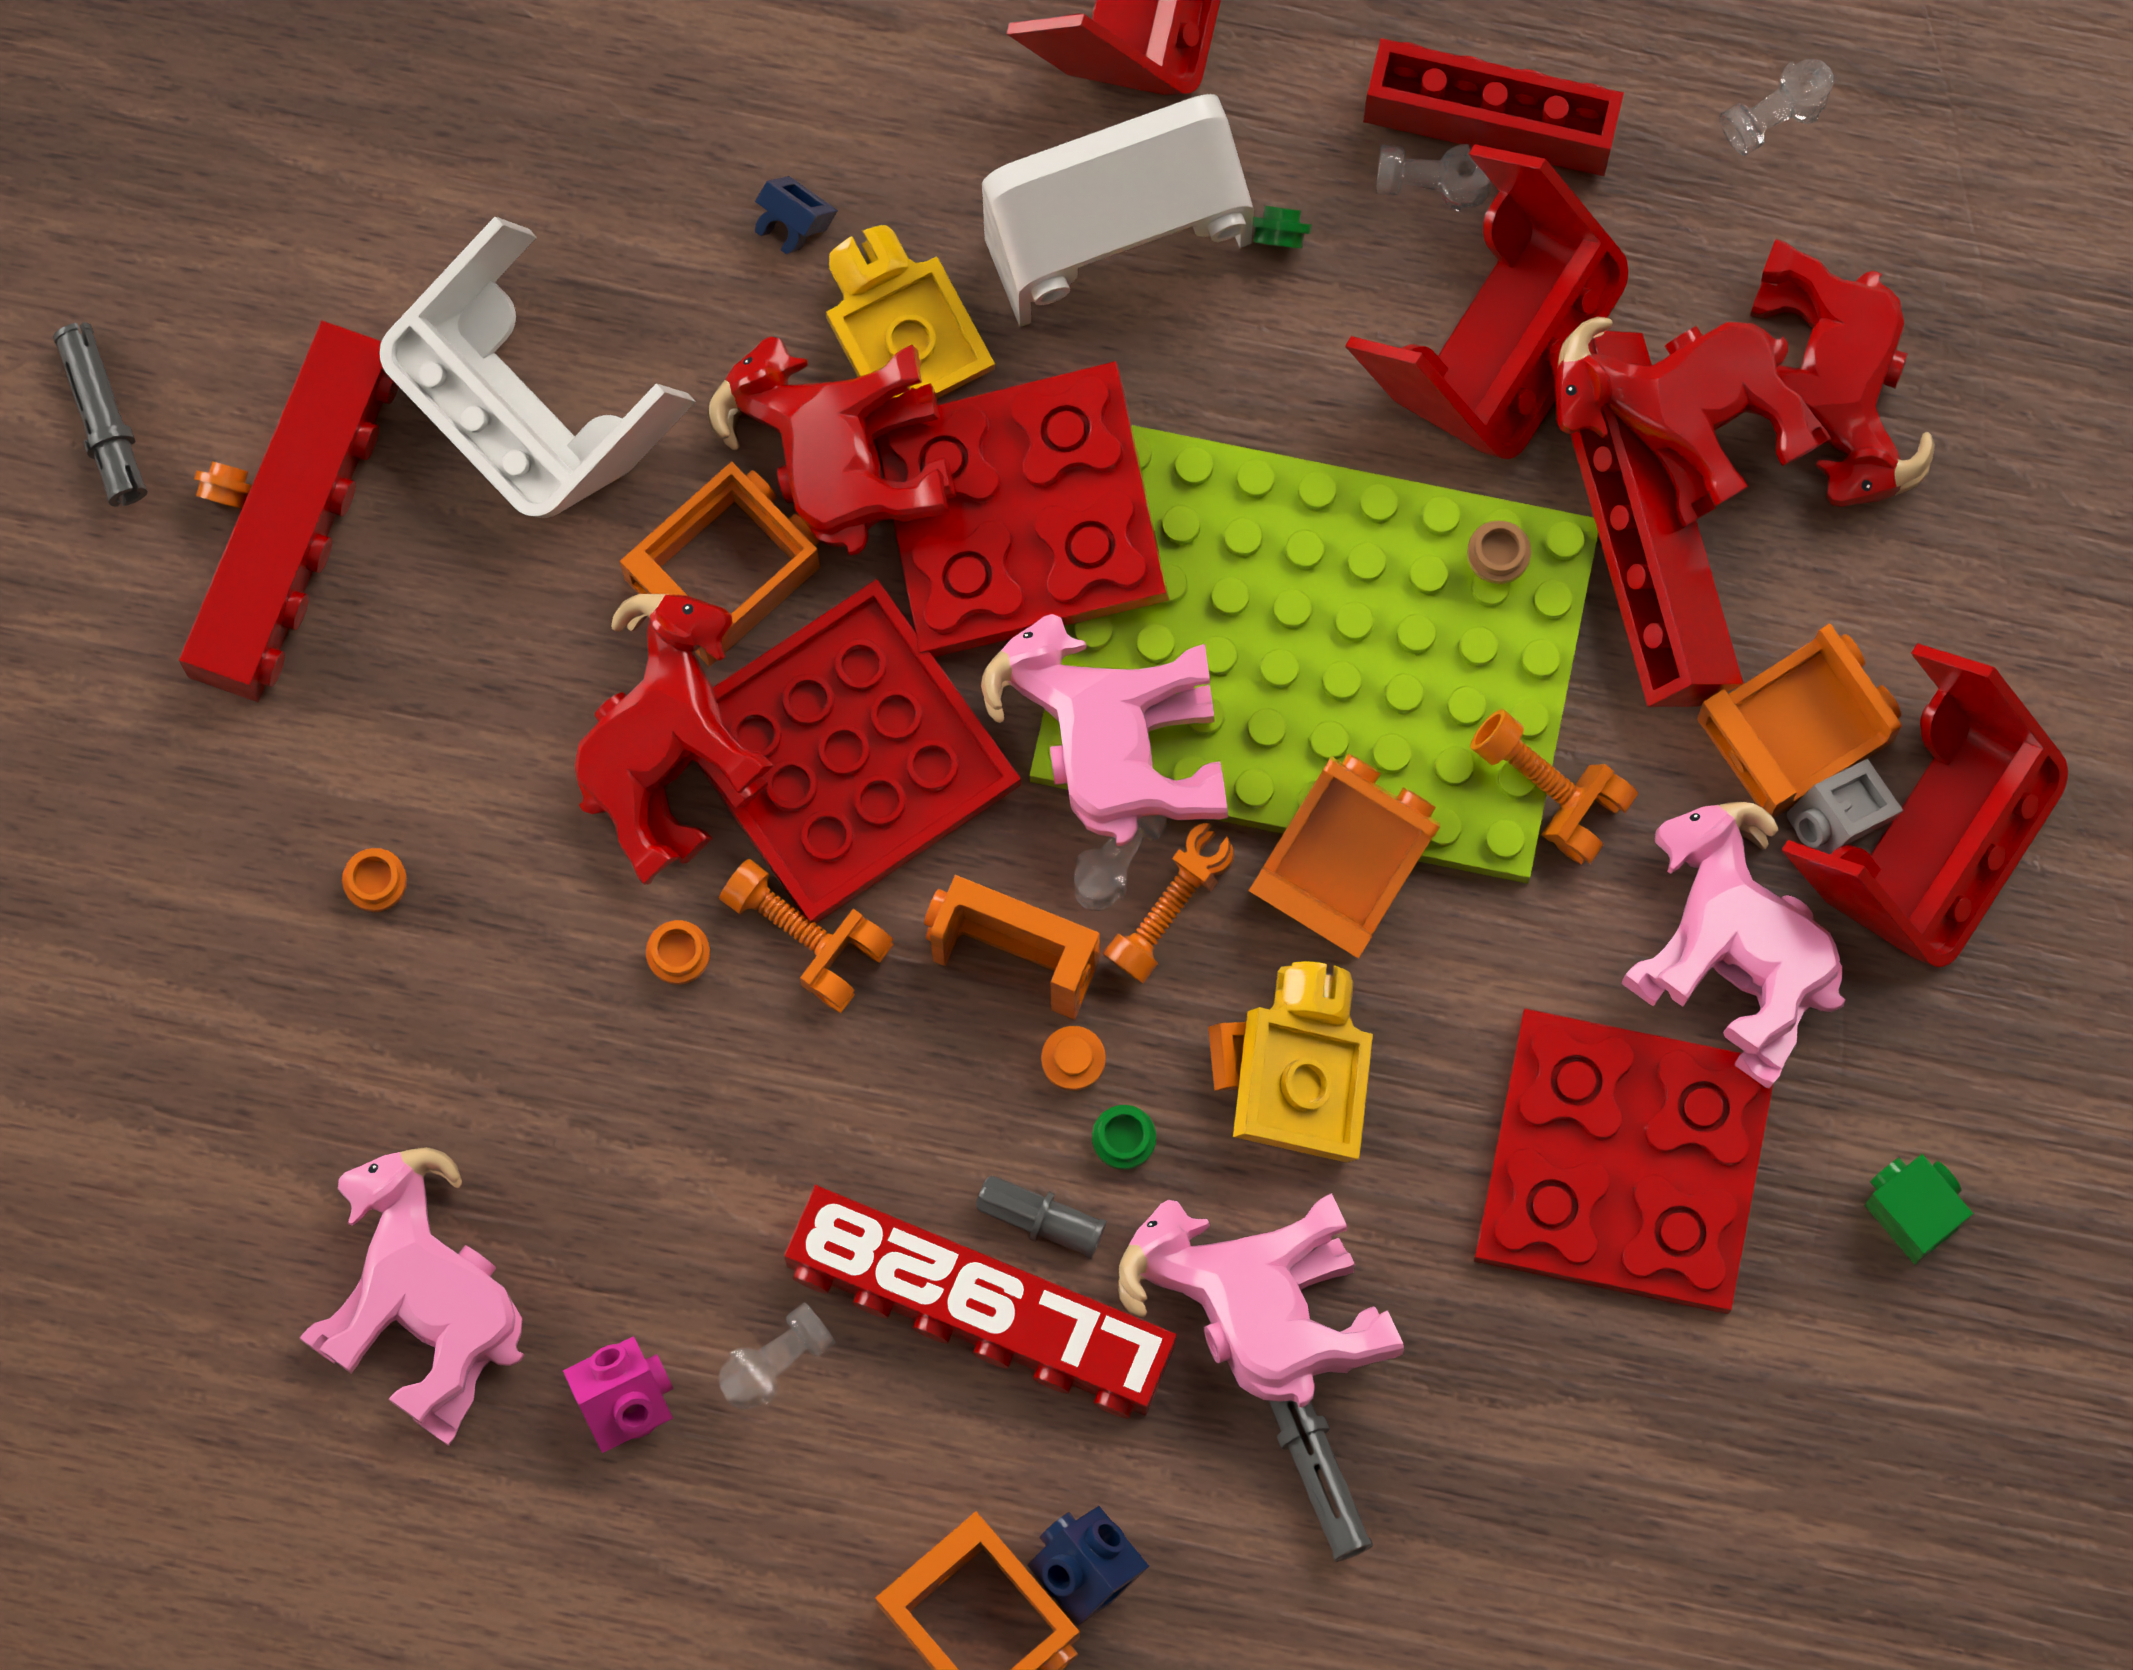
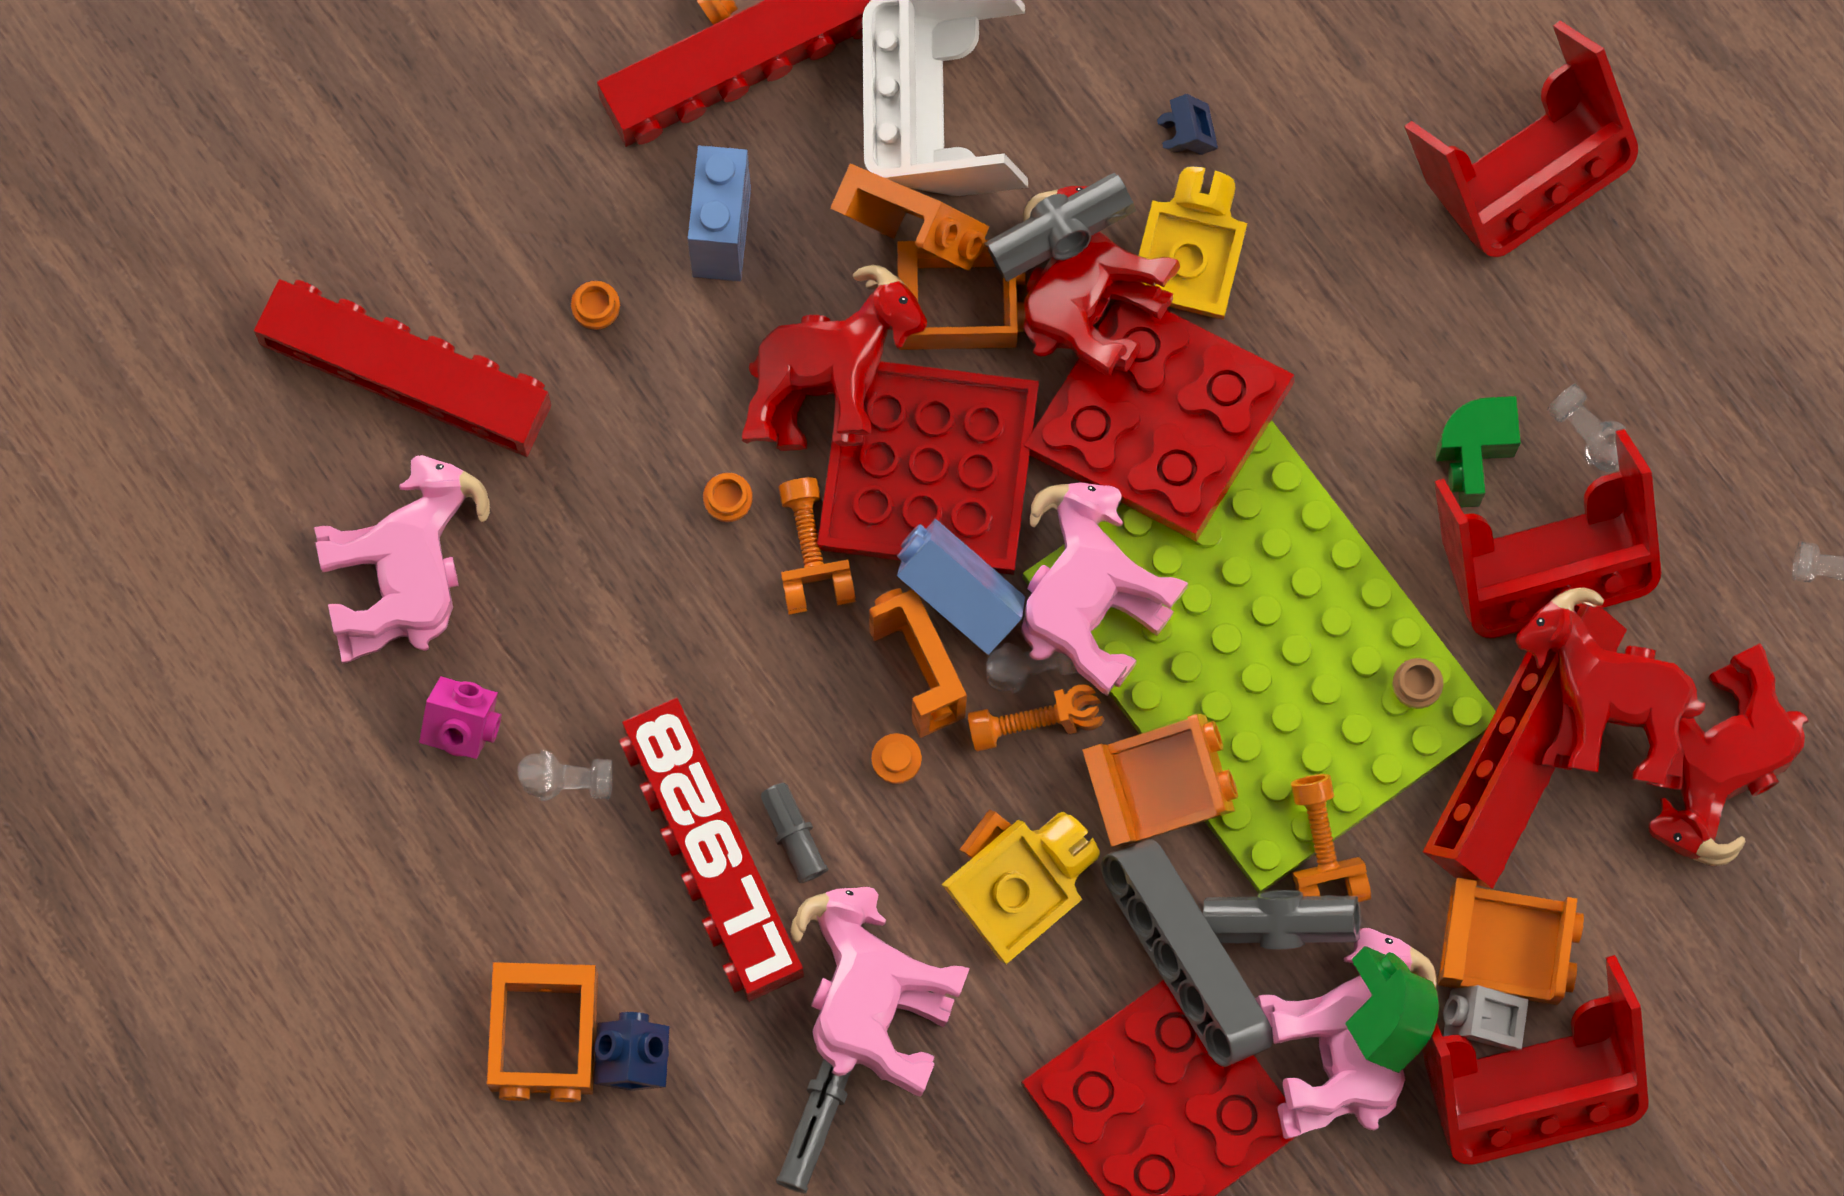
camera: 40 degrees right, 0 degrees up
(240, 1104) = (403, 366): none -> red brick
(422, 682) = (719, 213): none -> medium blue brick
(566, 537) = (884, 203): none -> orange panel
(769, 409) = (1060, 226): none -> dark grey piece
(991, 836) = (960, 585): none -> medium blue brick
(1113, 195) = (1378, 274): white windscreen -> none
(1124, 1137) = (883, 830): green plate -> none
(1280, 227) = (1468, 380): green plate -> none
(1331, 273) = (1477, 432): none -> green brick
(1492, 106) = (1662, 418): red brick -> none
(1520, 995) = (1187, 952): none -> dark grey beam
(1578, 885) = (1284, 919): none -> dark grey piece
(1779, 873) = (1397, 1016): none -> green brick

